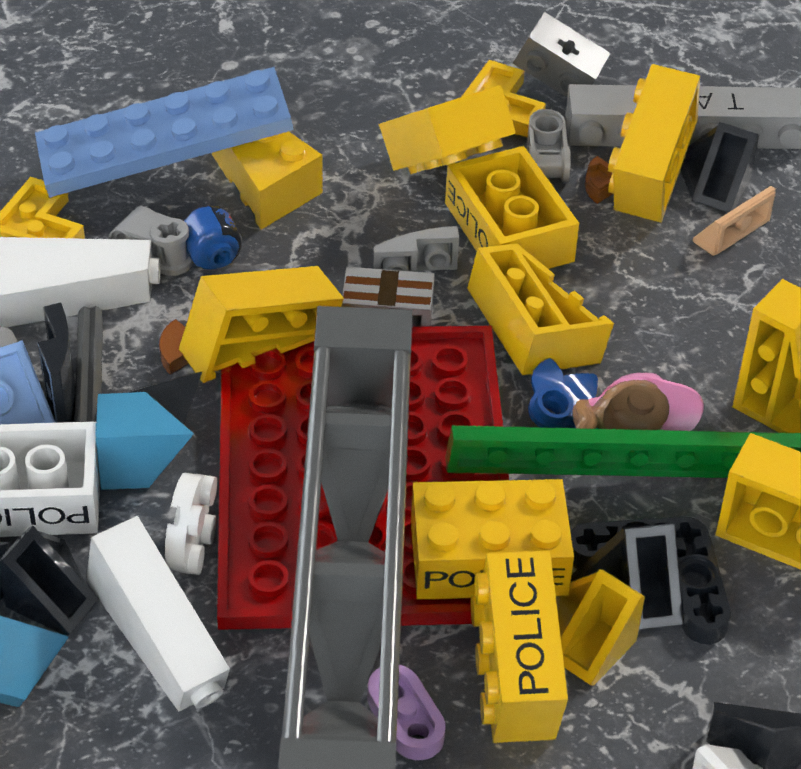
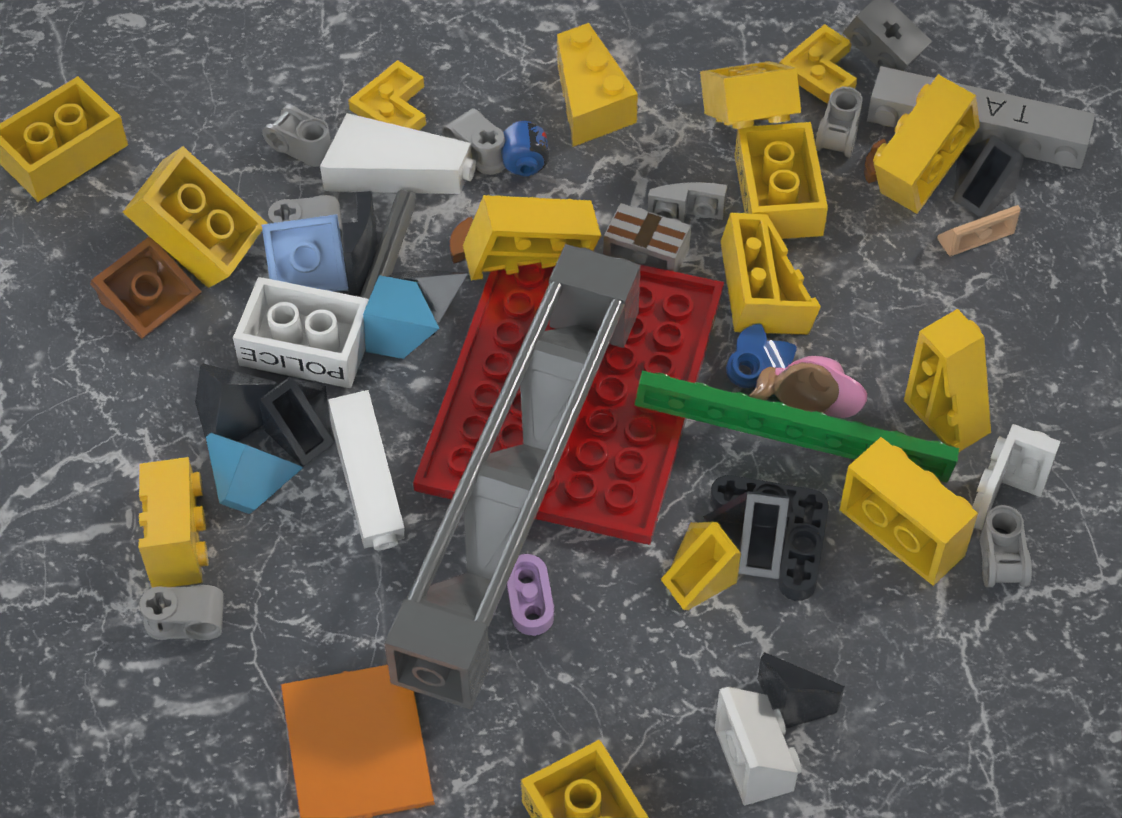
camera: 20 degrees right, 10 degrees up
(162, 131) = (513, 44): medium blue plate -> none
(191, 523) = (417, 402): white plate -> none
(467, 519) = (640, 472): yellow brick -> none
(519, 647) = (624, 567): yellow brick -> none

